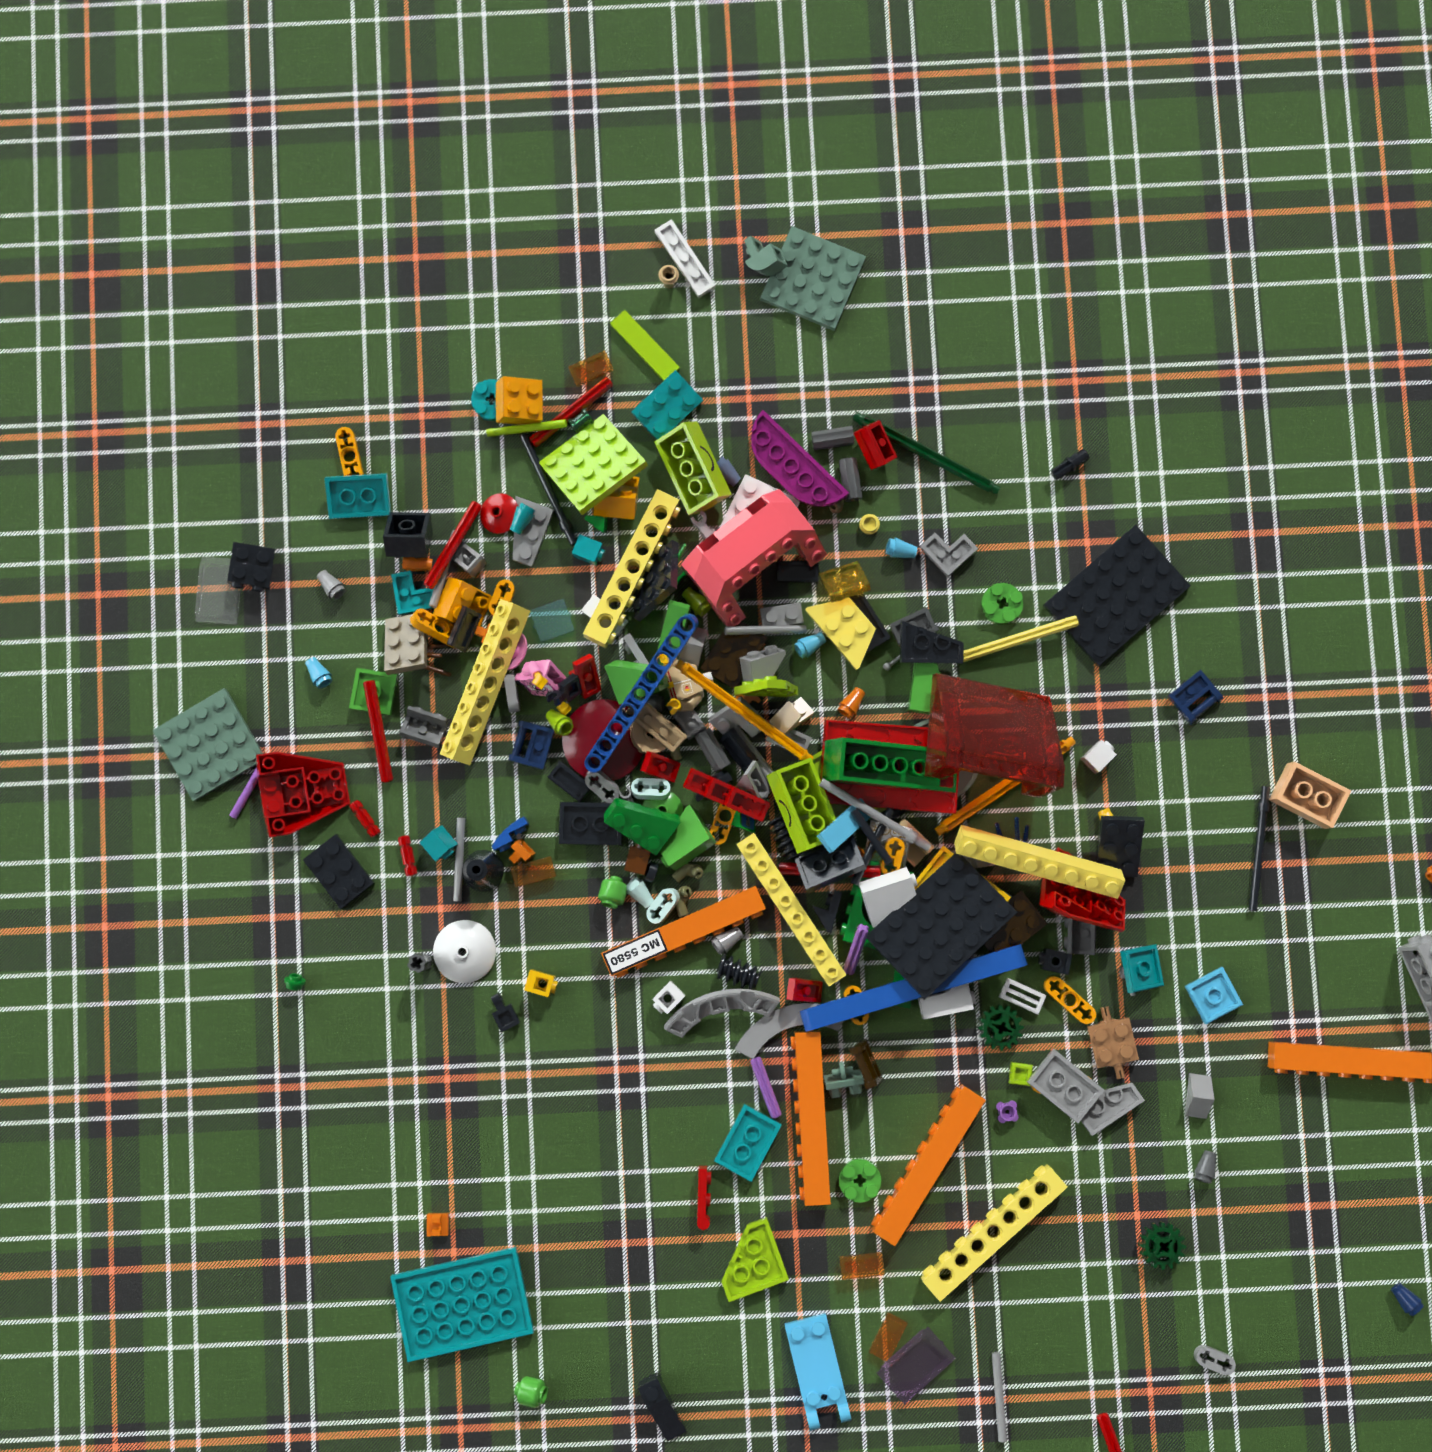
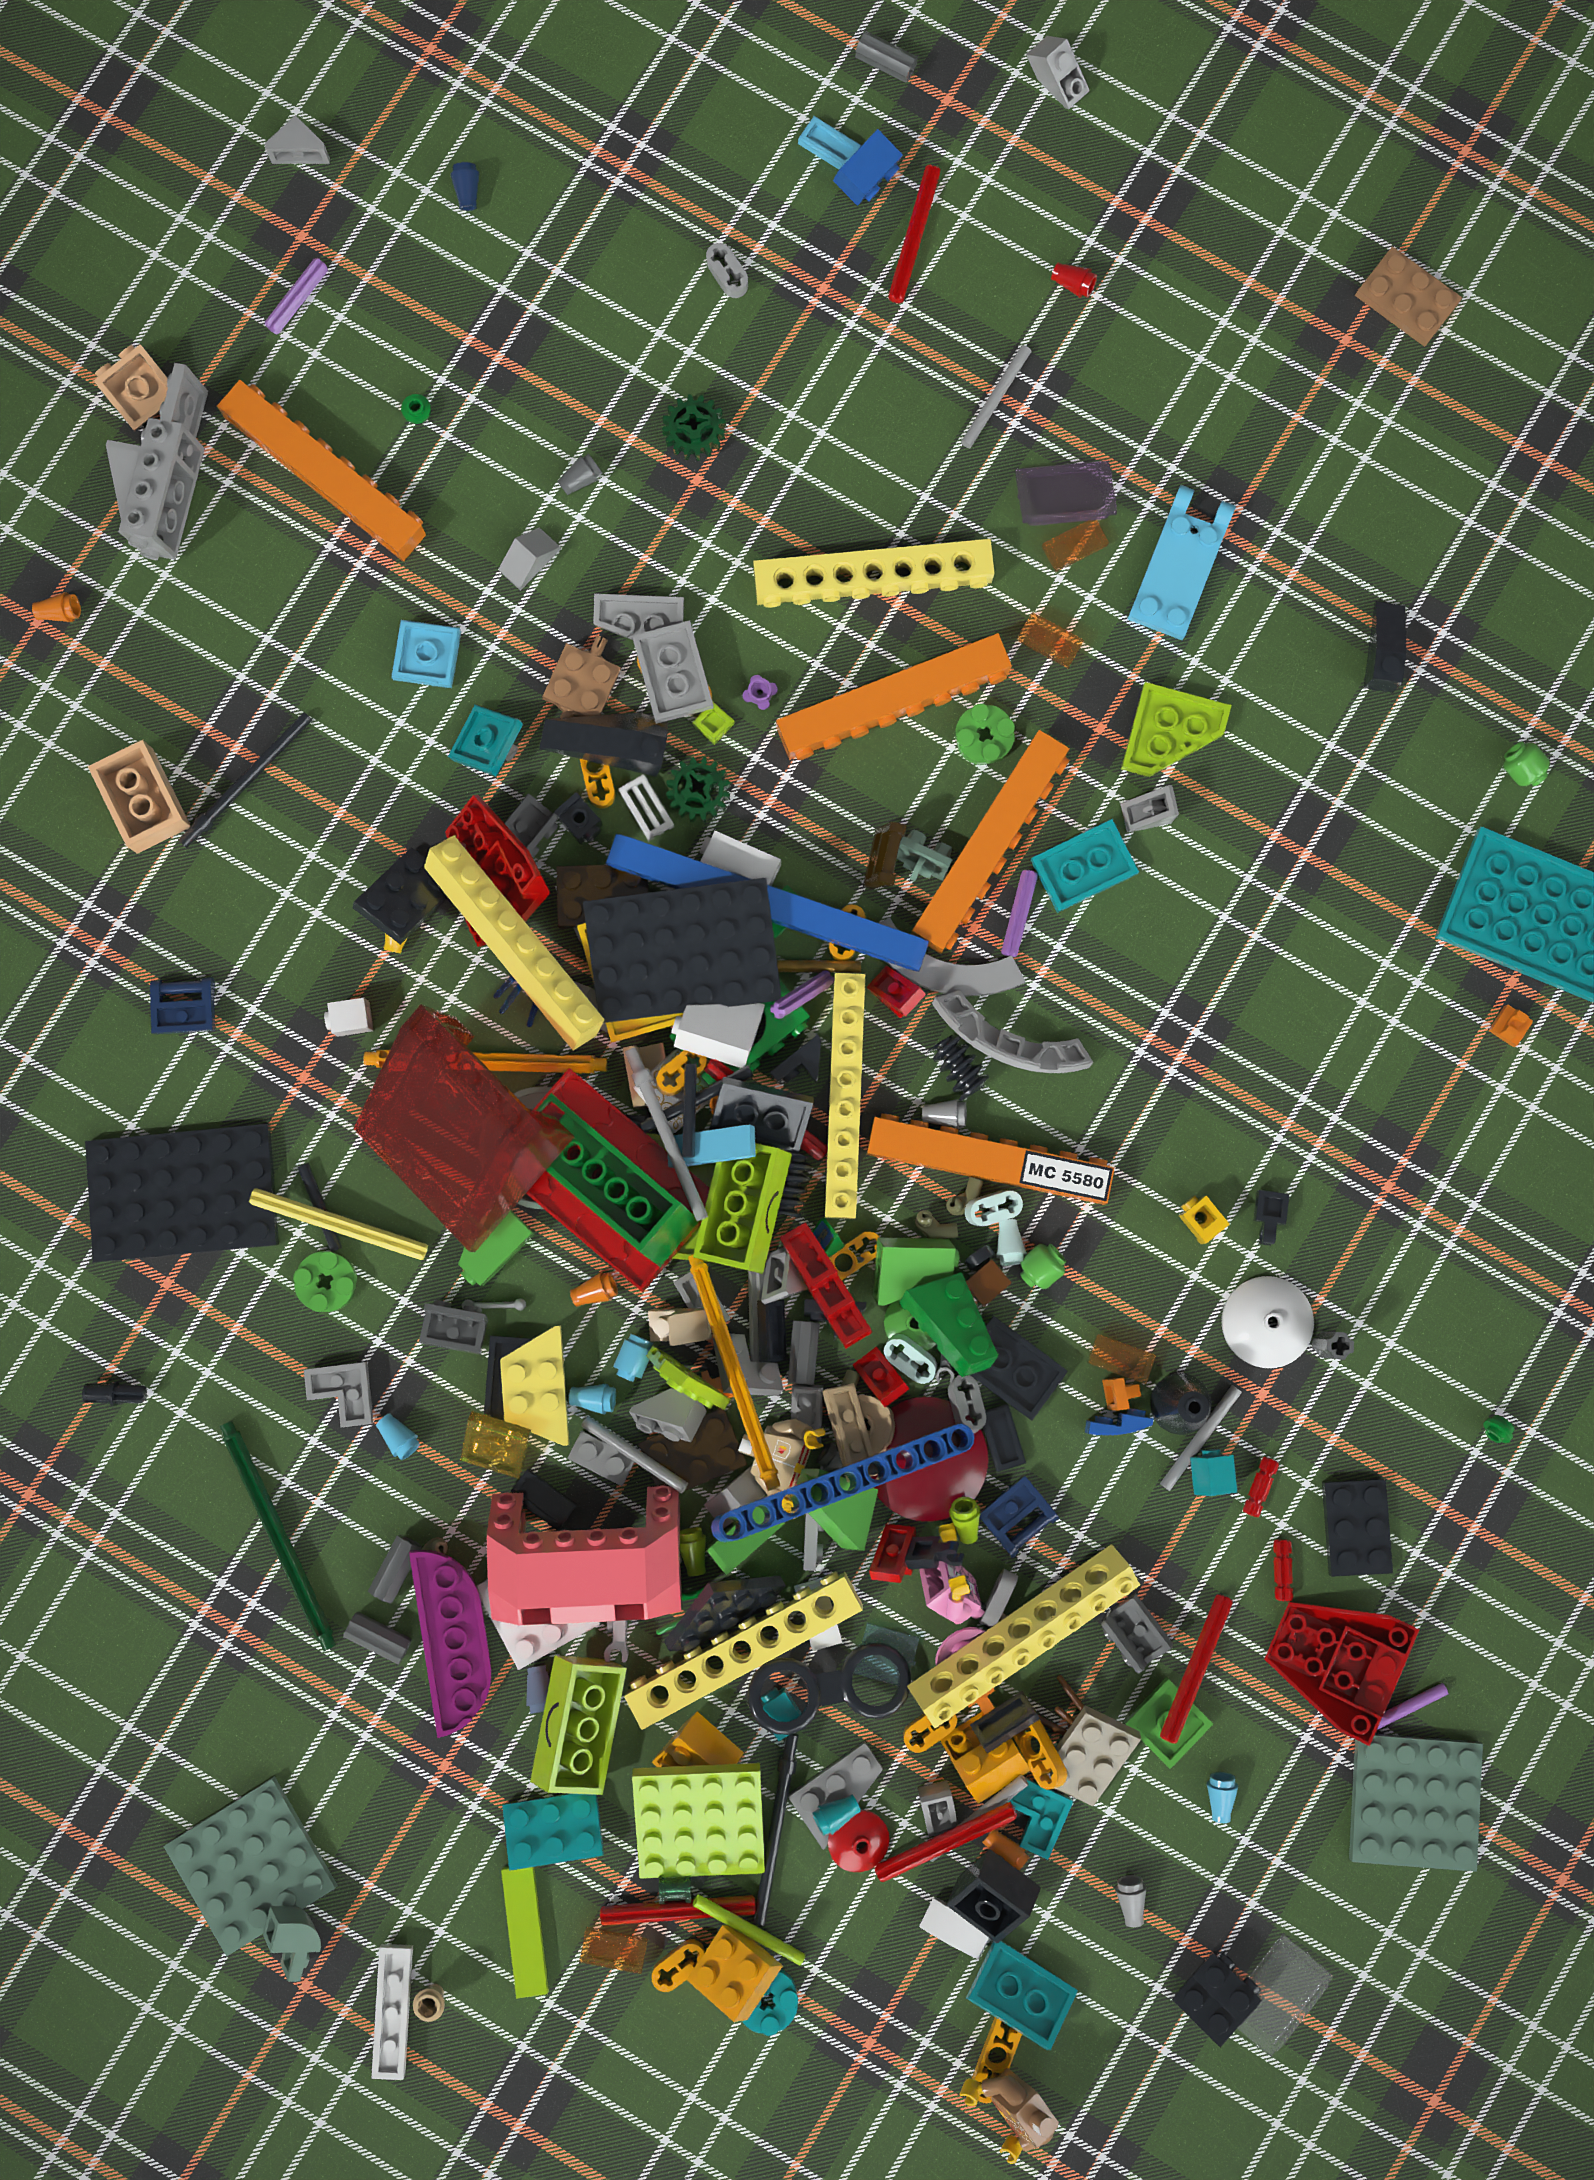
camera: 150 degrees left, 0 degrees up
(322, 438) = (1020, 2108): none -> medium nougat torso
(417, 503) = (953, 1929): none -> white slope
(555, 386) = (674, 1959): none -> light orange beam
(571, 580) = (829, 1688): none -> black bar
(598, 522) = (744, 1740): green slope -> none
(676, 994) = (1049, 1095): white brick -> none
(704, 1198) = (1179, 839): red plate -> none
(733, 1203) = (1150, 810): none -> light grey slope
(804, 680) = (632, 1357): none -> medium azure brick
(858, 973) = (819, 966): none -> pearl gold bar
(869, 524) = (412, 1495): light yellow plate -> none
(875, 444) = (332, 1590): red brick -> none
(924, 646) = (455, 1292): black wing -> none
(1038, 642) = (318, 1202): none -> black bar
(1070, 1021) = (614, 740): none -> black wedge
(1324, 1138) = (419, 416): none -> green plate

